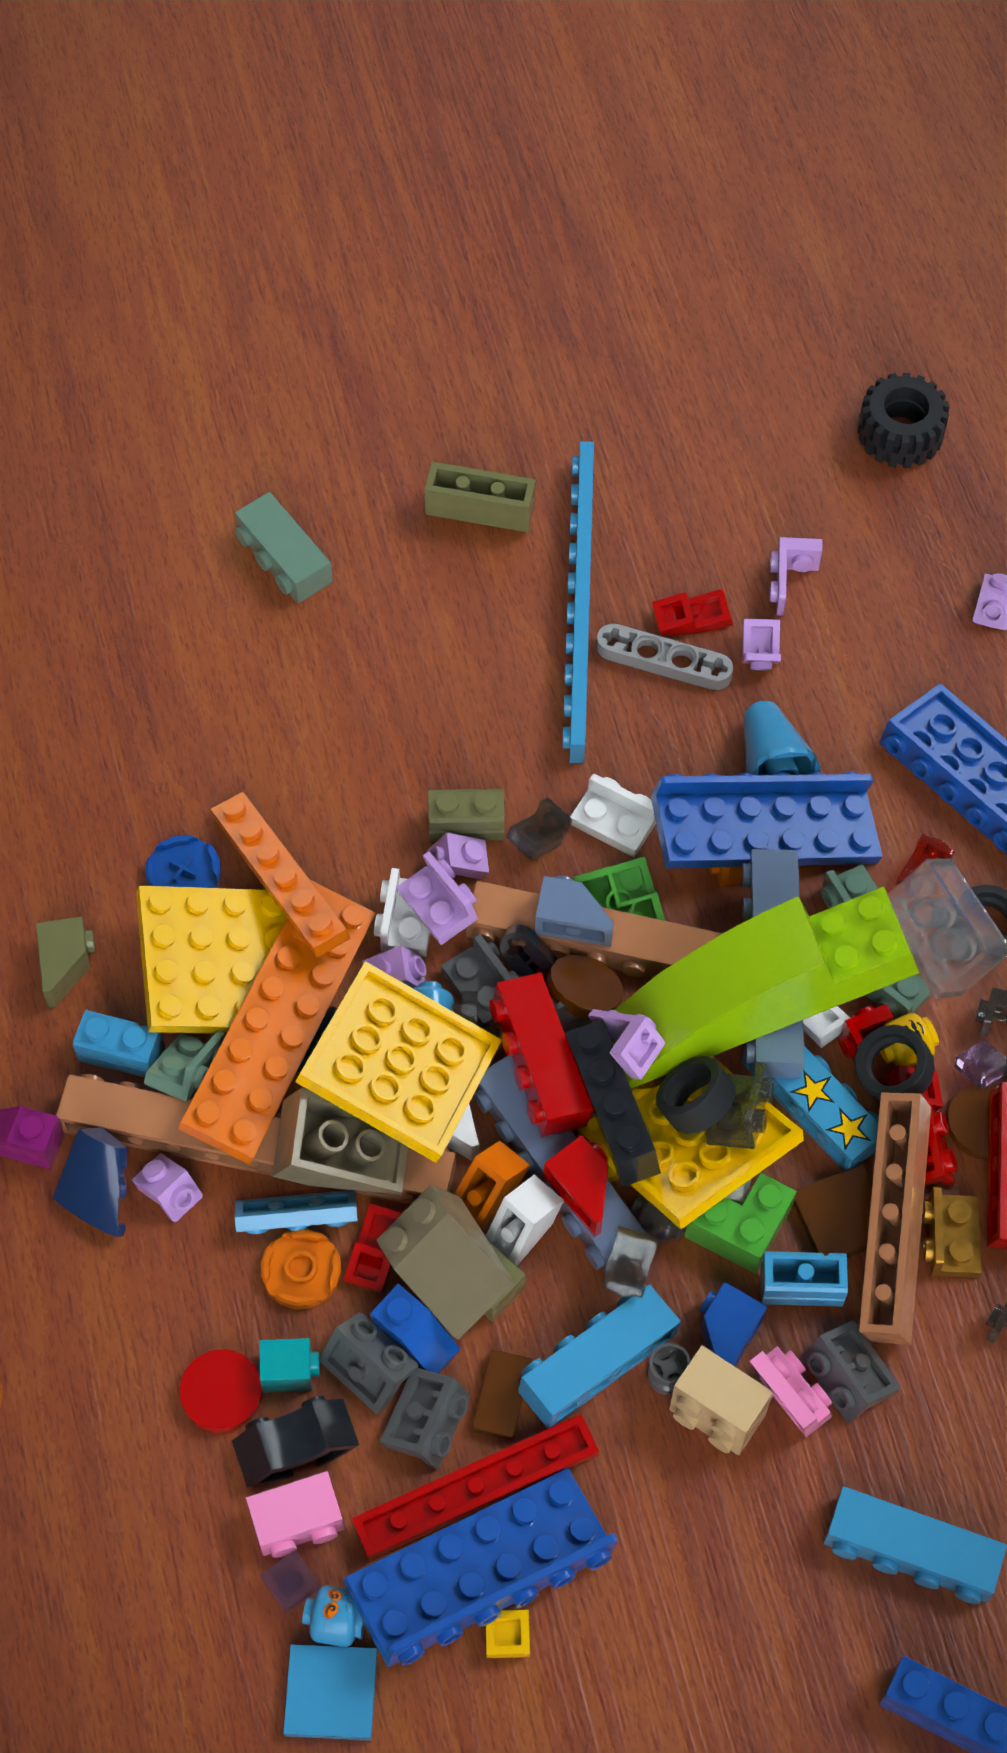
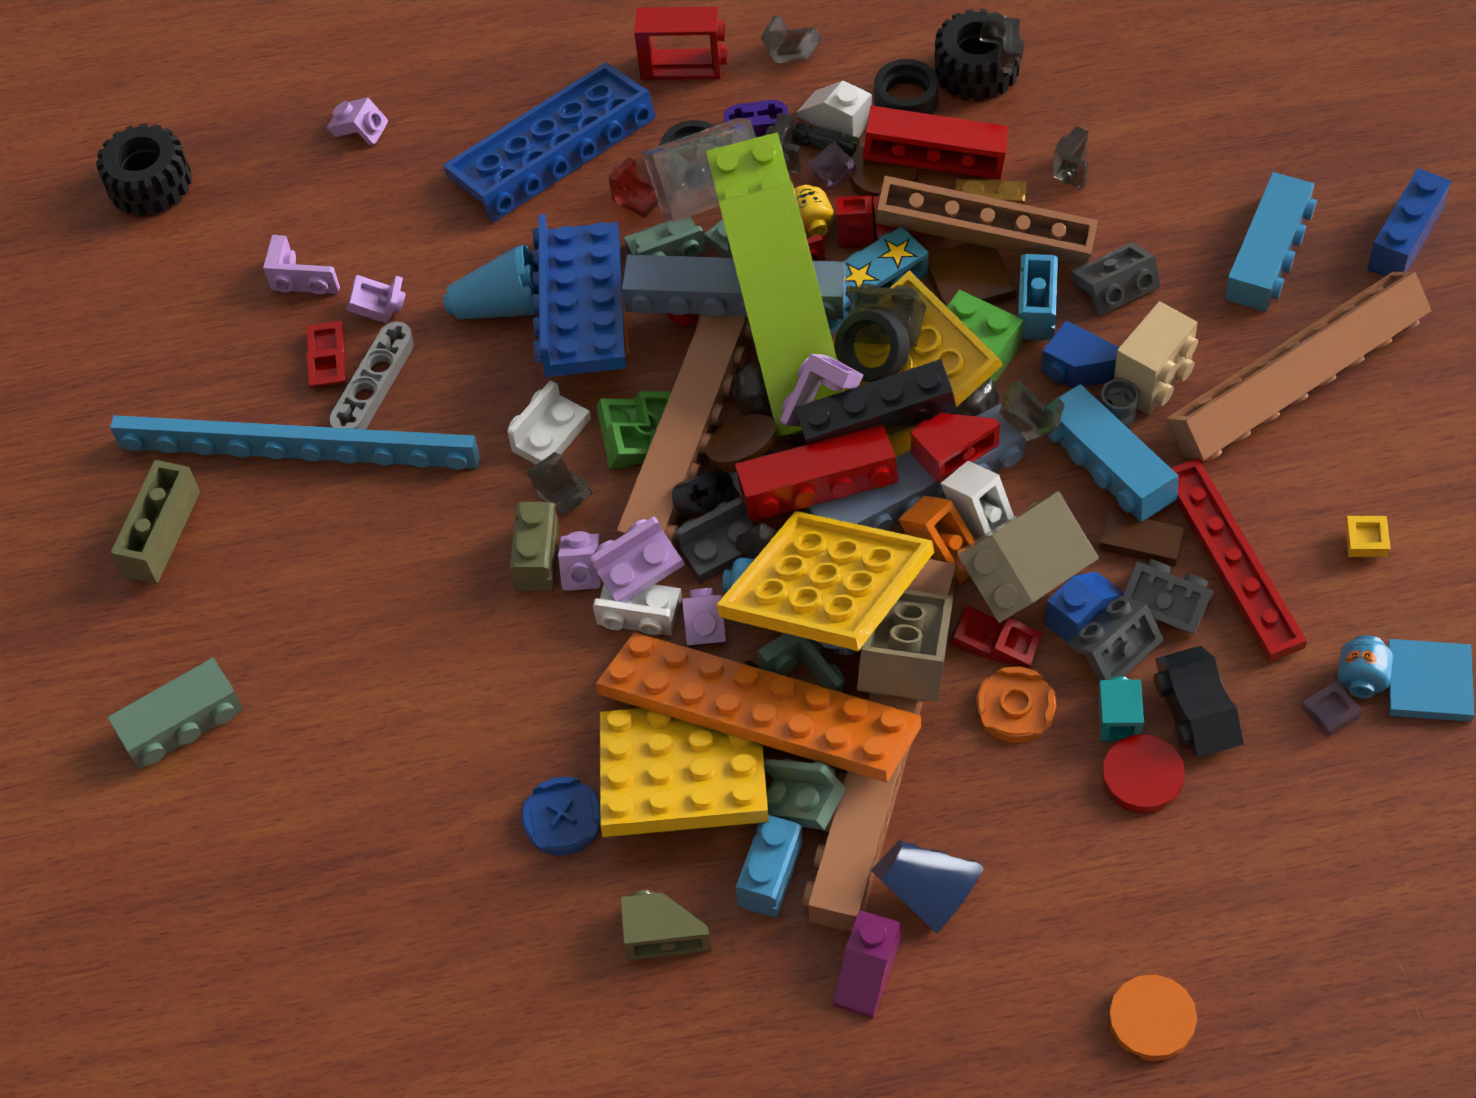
camera: 80 degrees left, 5 degrees down
(168, 1186) = (927, 819): lavender bracket -> none
(280, 874) = (588, 706): orange plate -> none
(295, 1211) = (960, 704): dark azure plate -> none
(295, 1515) = (1268, 702): bright pink brick -> none
(479, 1568) = (1319, 548): blue bracket -> none
(571, 913) = (666, 443): sand blue slope -> none
(731, 1569) = (1298, 366): none -> nougat brick
(801, 1402) = (1126, 314): bright pink plate -> none
(883, 1038) = (847, 182): black tyre -> none

